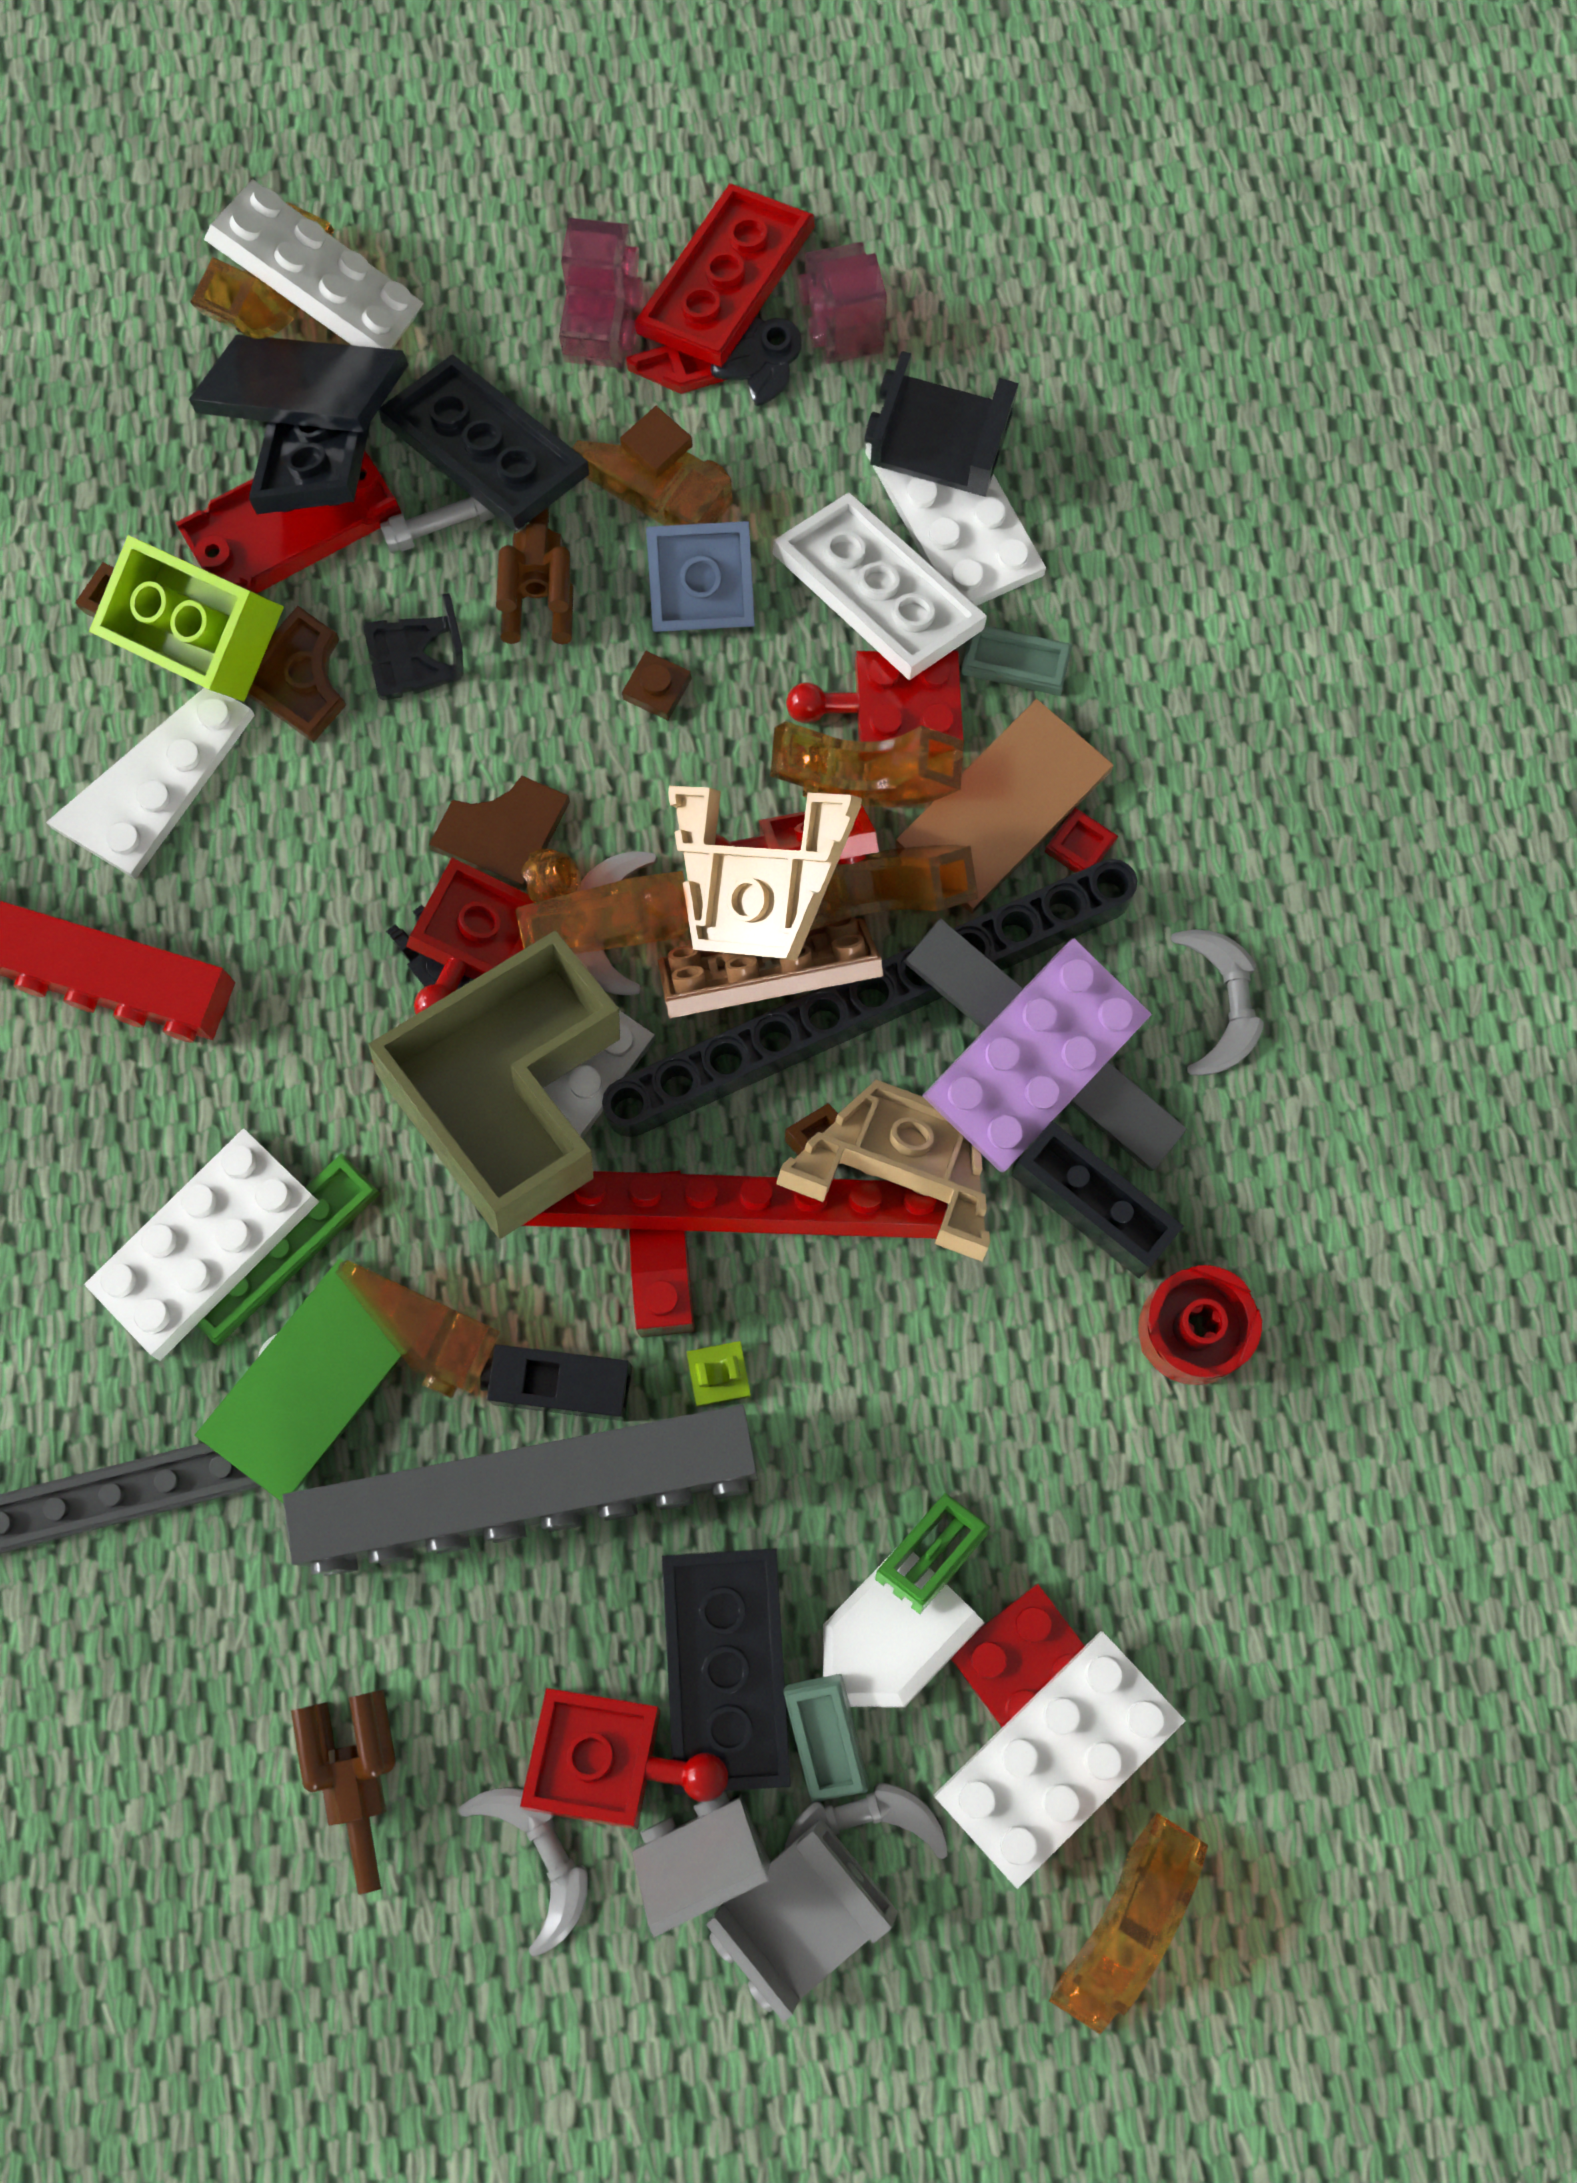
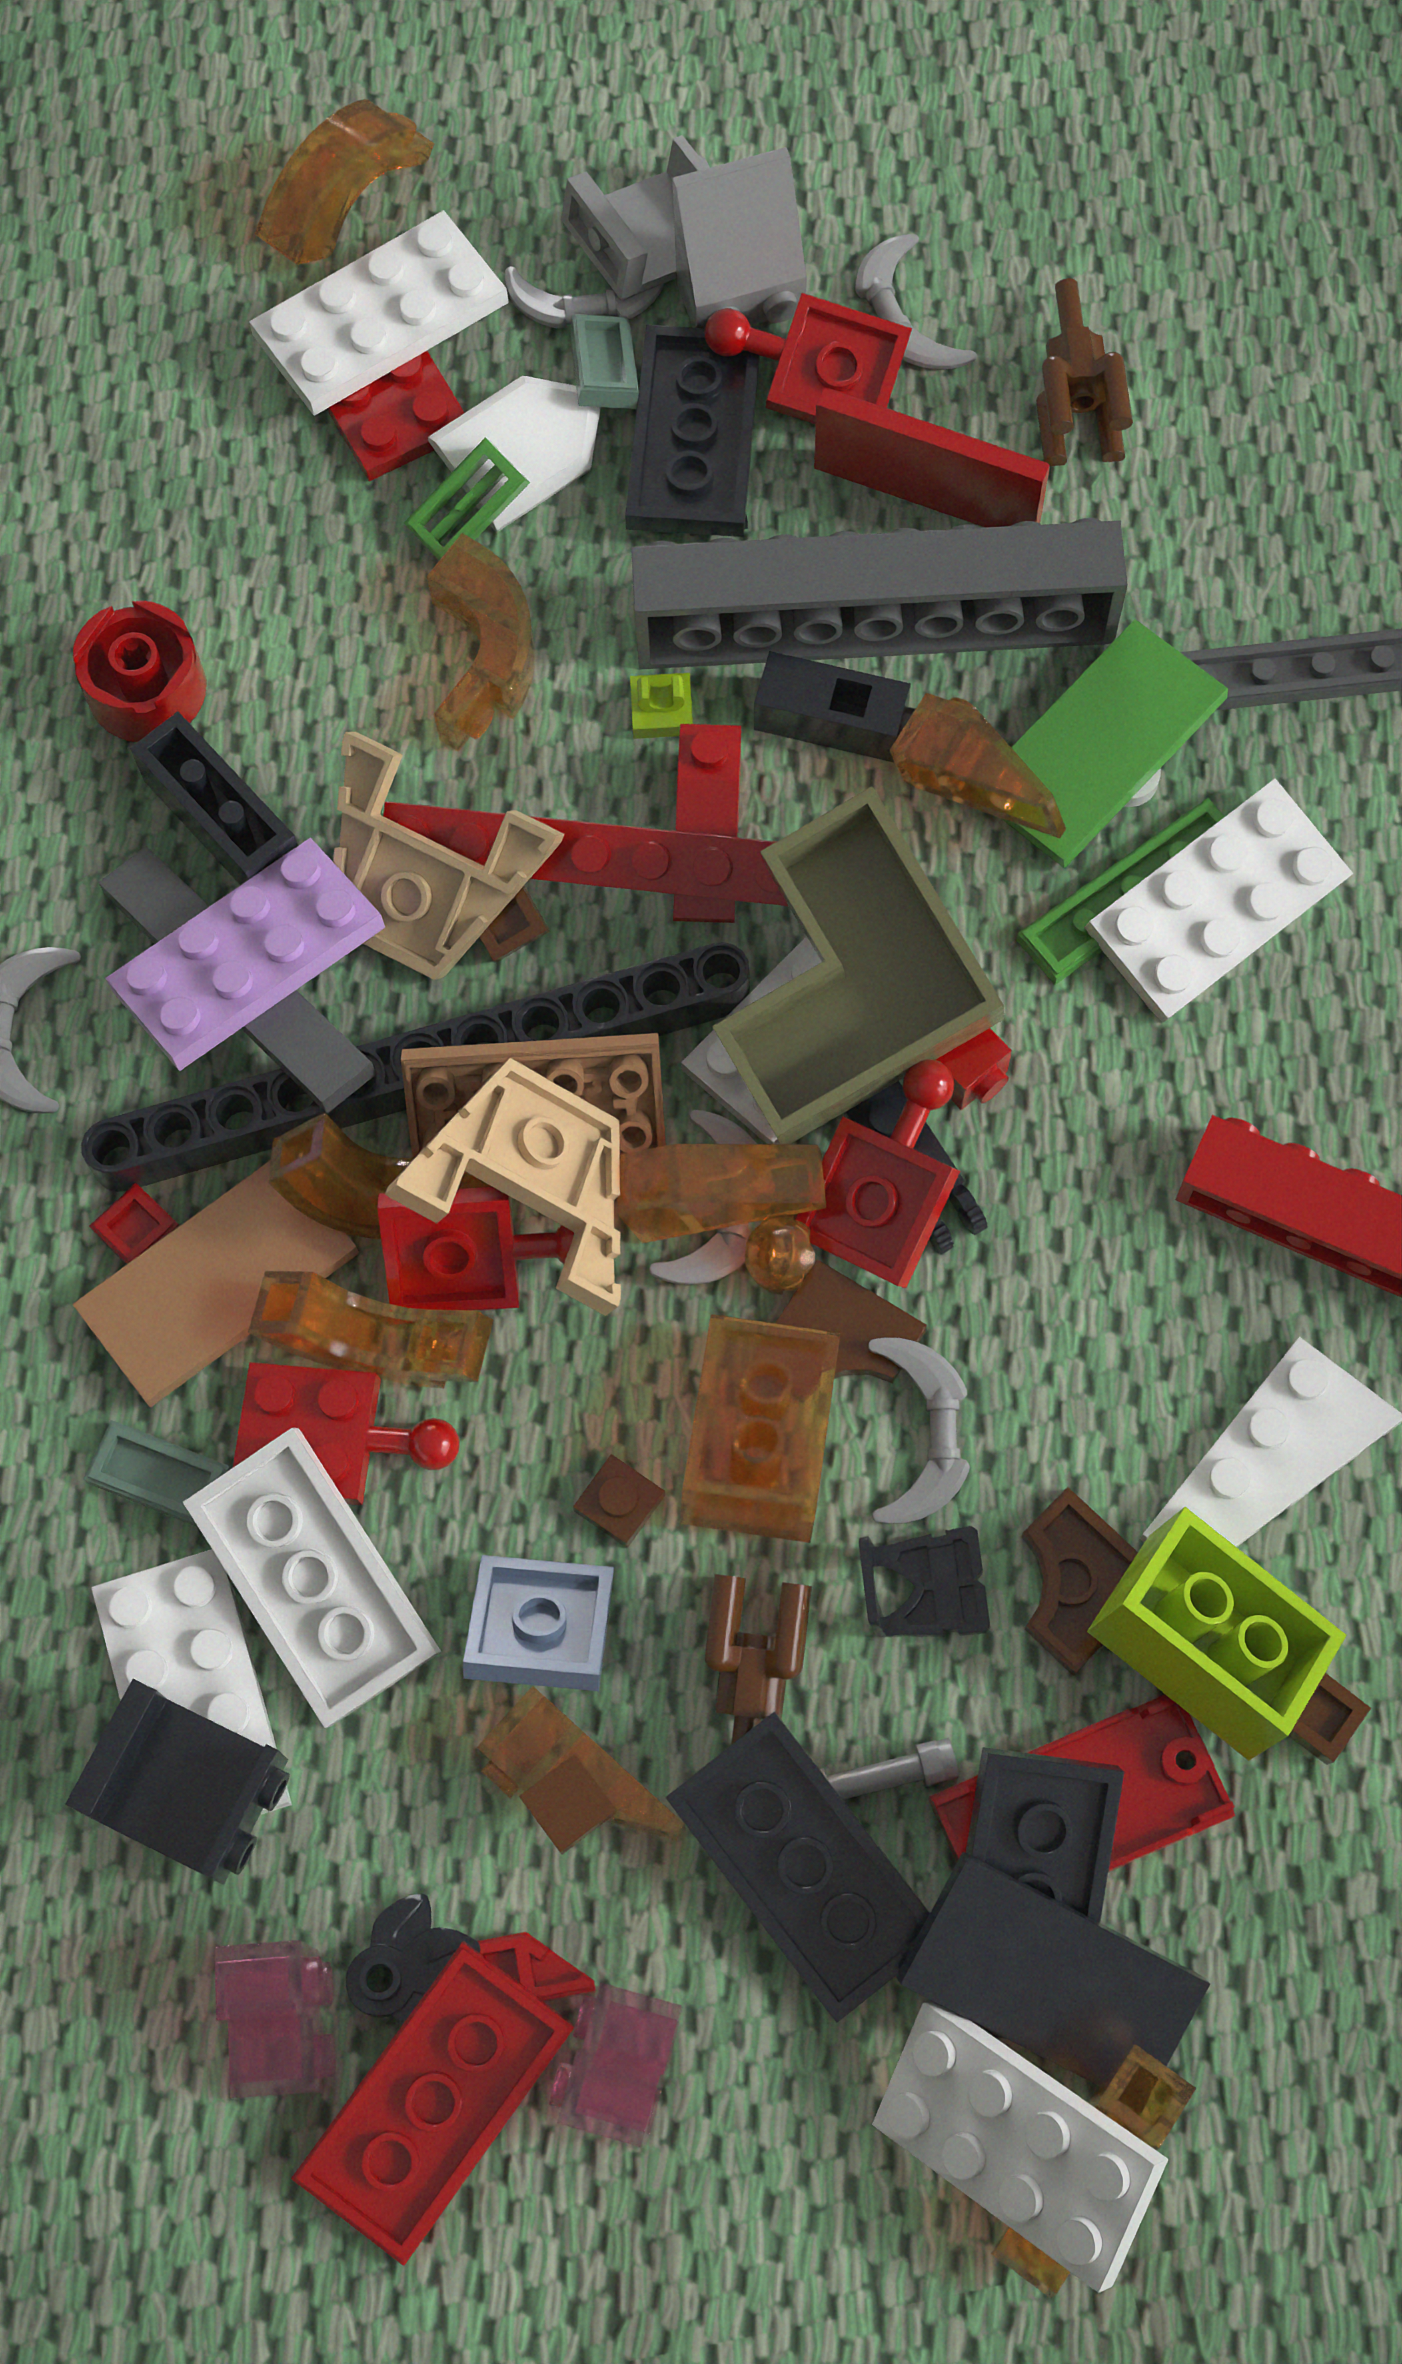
camera: 170 degrees left, 5 degrees down
(406, 744) = (945, 1467): none -> light grey piece
(485, 1639) = (926, 463): none -> red tile
(550, 736) = (759, 1428): none -> clear orange slope
(879, 1436) = (489, 600): none -> clear orange arch

